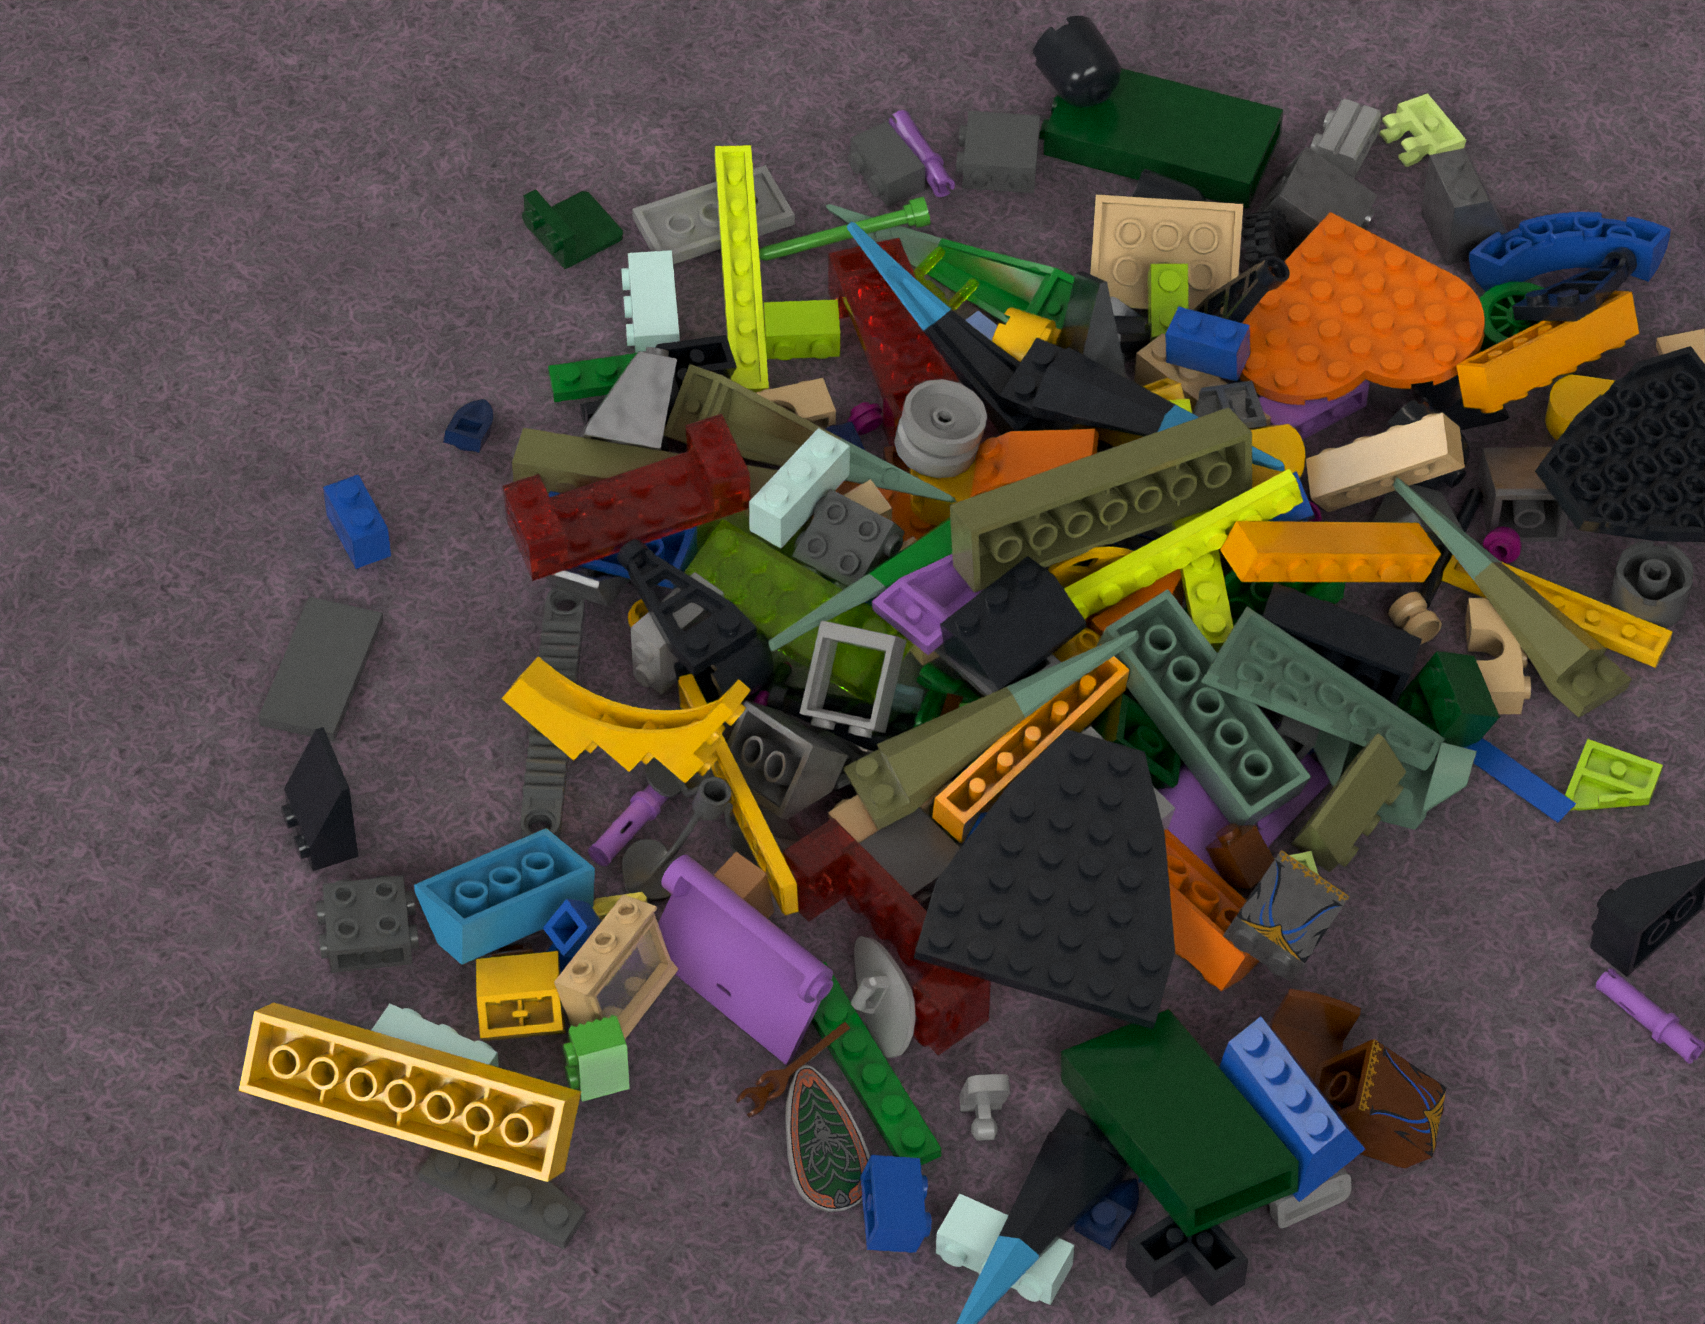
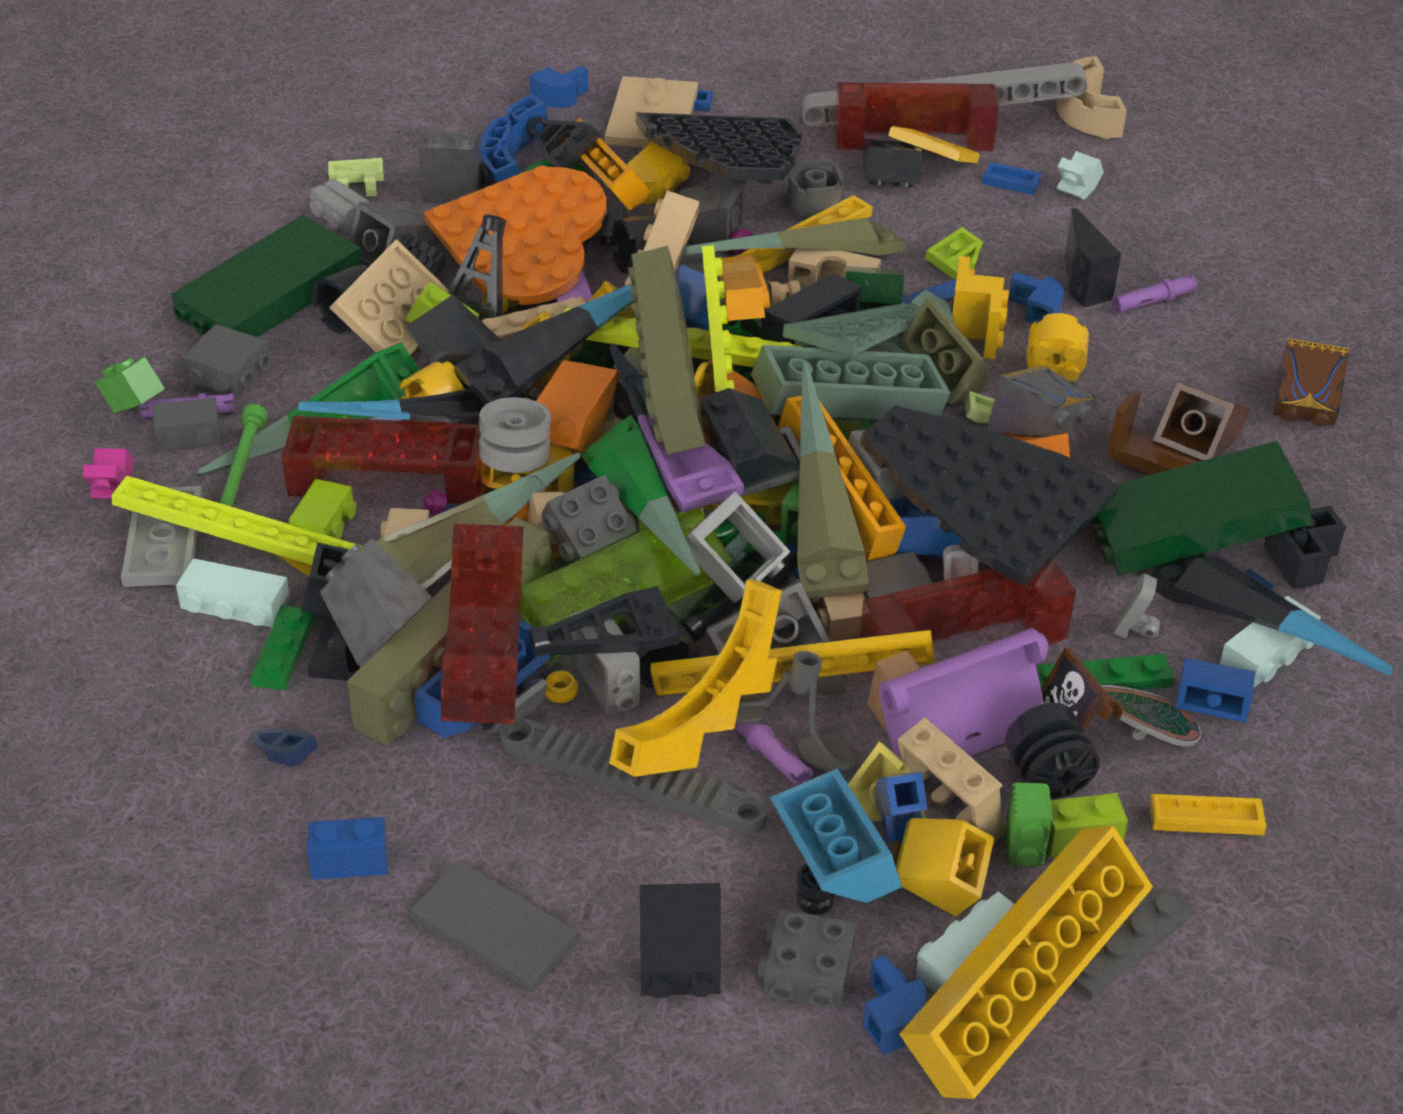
camera: 70 degrees left, 10 degrees down
(347, 1006) = (893, 1007): none -> blue brick
(571, 227) = (108, 623): dark green bracket -> none
(633, 1116) = (1084, 812): none -> lime brick
(705, 1233) = (1207, 814): none -> yellow plate
(712, 1057) = (1052, 749): none -> black wheel
(777, 138) = (108, 471): none -> dark pink brick
(798, 486) = (545, 531): light aqua brick -> none
(883, 997) = (1049, 620): light grey shield -> none
(905, 87) = (128, 384): none -> bright green brick
(1078, 62) = (198, 279): black cylinder -> none
(1207, 343) = (513, 290): blue brick -> none
(1239, 397) = (576, 294): dark grey slope -> none
(1240, 855) = (966, 411): reddish brown brick -> none
(1290, 1104) = (1206, 436): blue slope -> none
(1441, 922) = (1058, 345): none -> yellow brick
(1477, 816) = (980, 307): none -> yellow bracket
(1523, 1218) = (1310, 382): none -> reddish brown slope
(1555, 896) = (1037, 295): none -> blue brick

